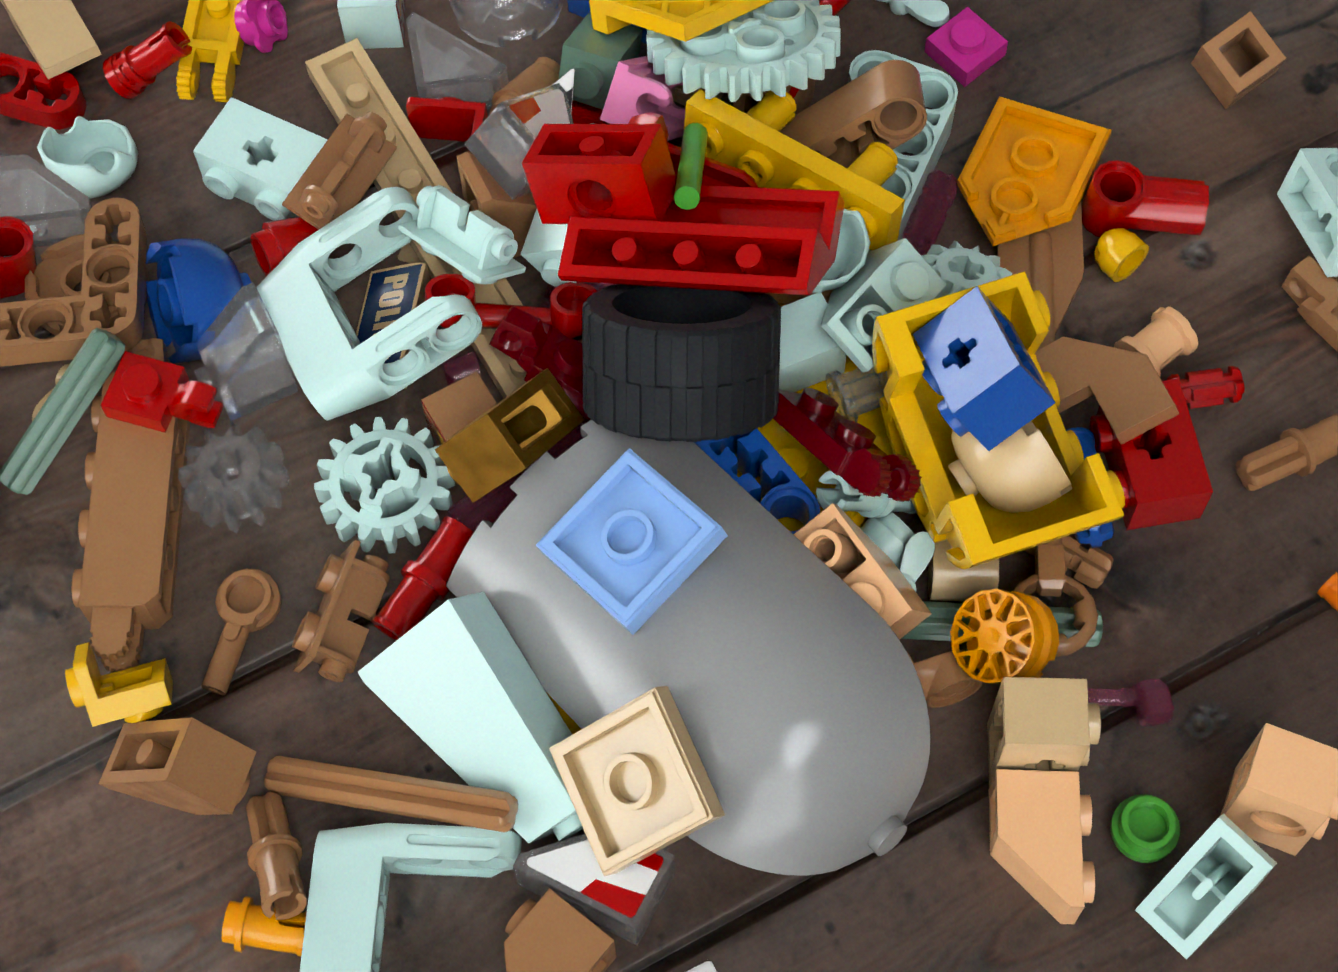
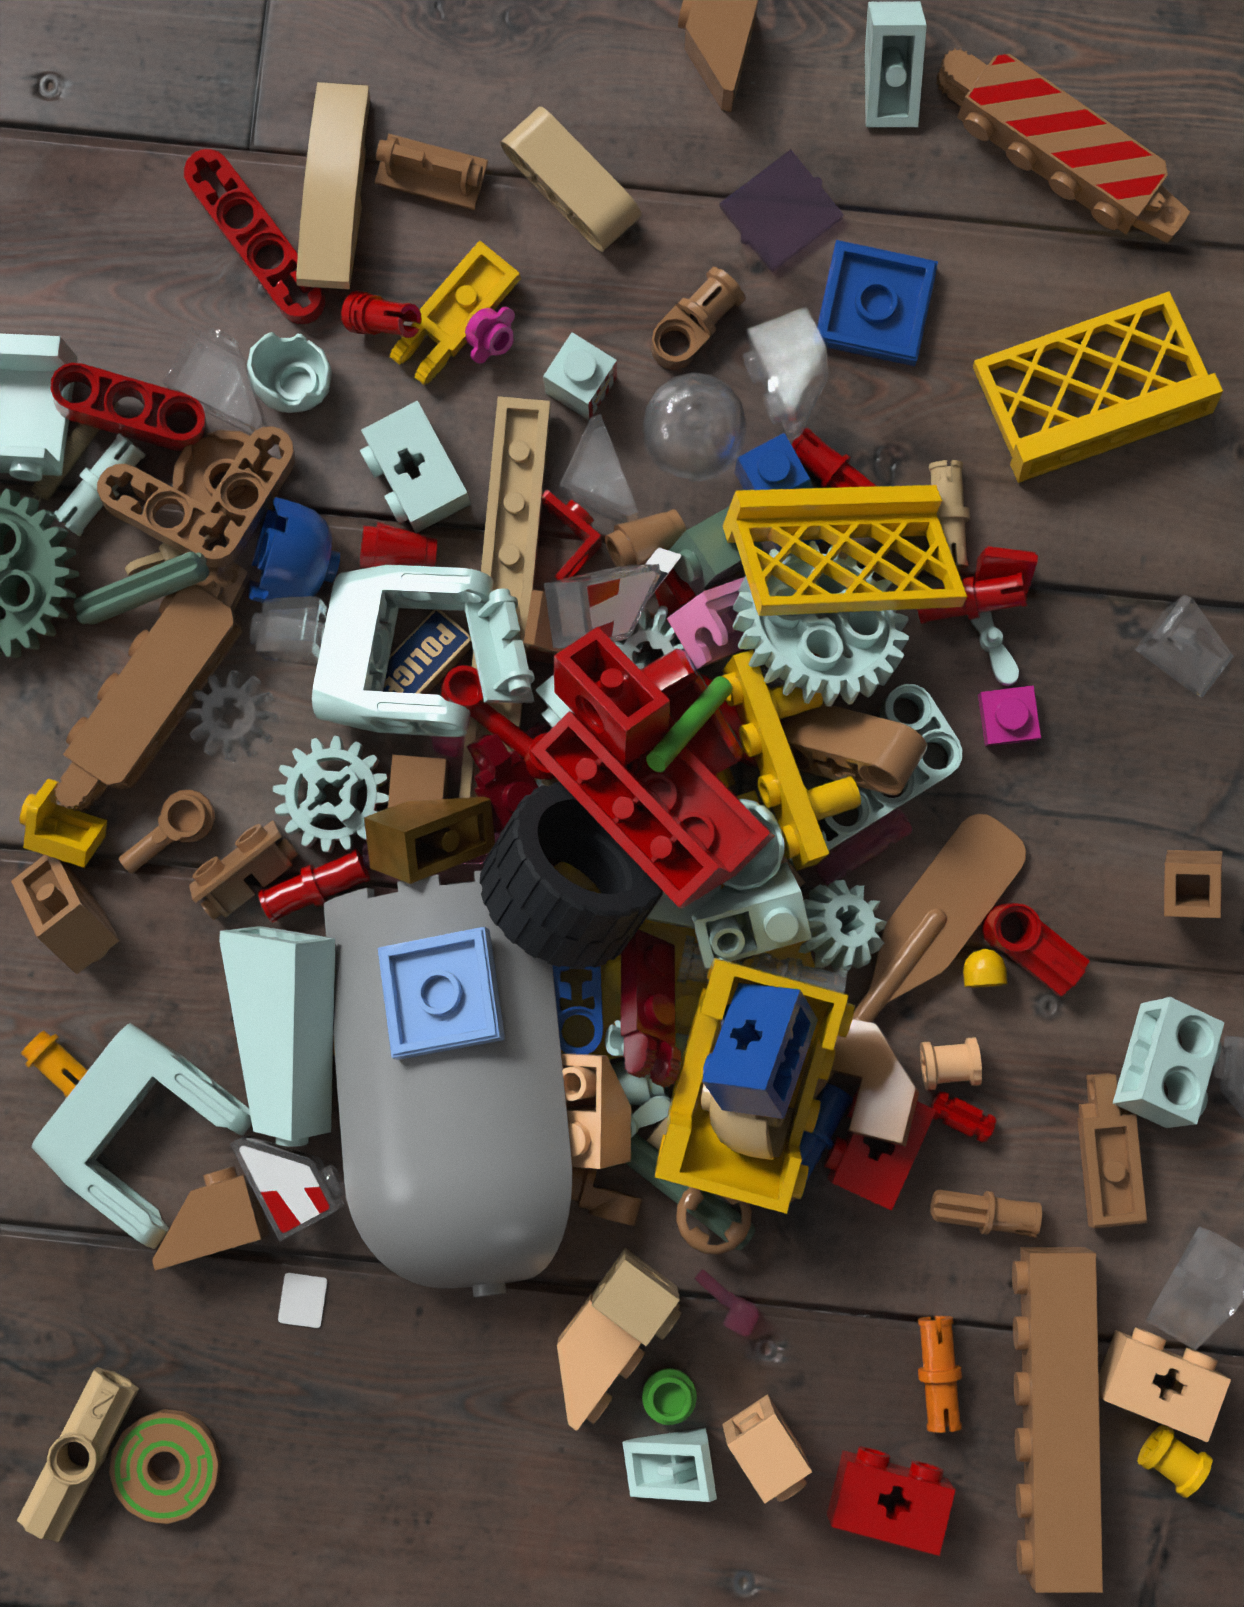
camera: 35 degrees right, 20 degrees up
(154, 391) = (207, 625): red plate -> none
(275, 857) = (88, 1020): medium nougat axle -> none
(341, 170) = (455, 524): medium nougat hinge -> none
(392, 793) = (187, 1033): medium nougat axle -> none
(636, 781) = (334, 1158): tan plate -> none
(1005, 635) = (660, 1202): light orange wheel -> none
(1029, 169) = (969, 860): light orange tile -> none

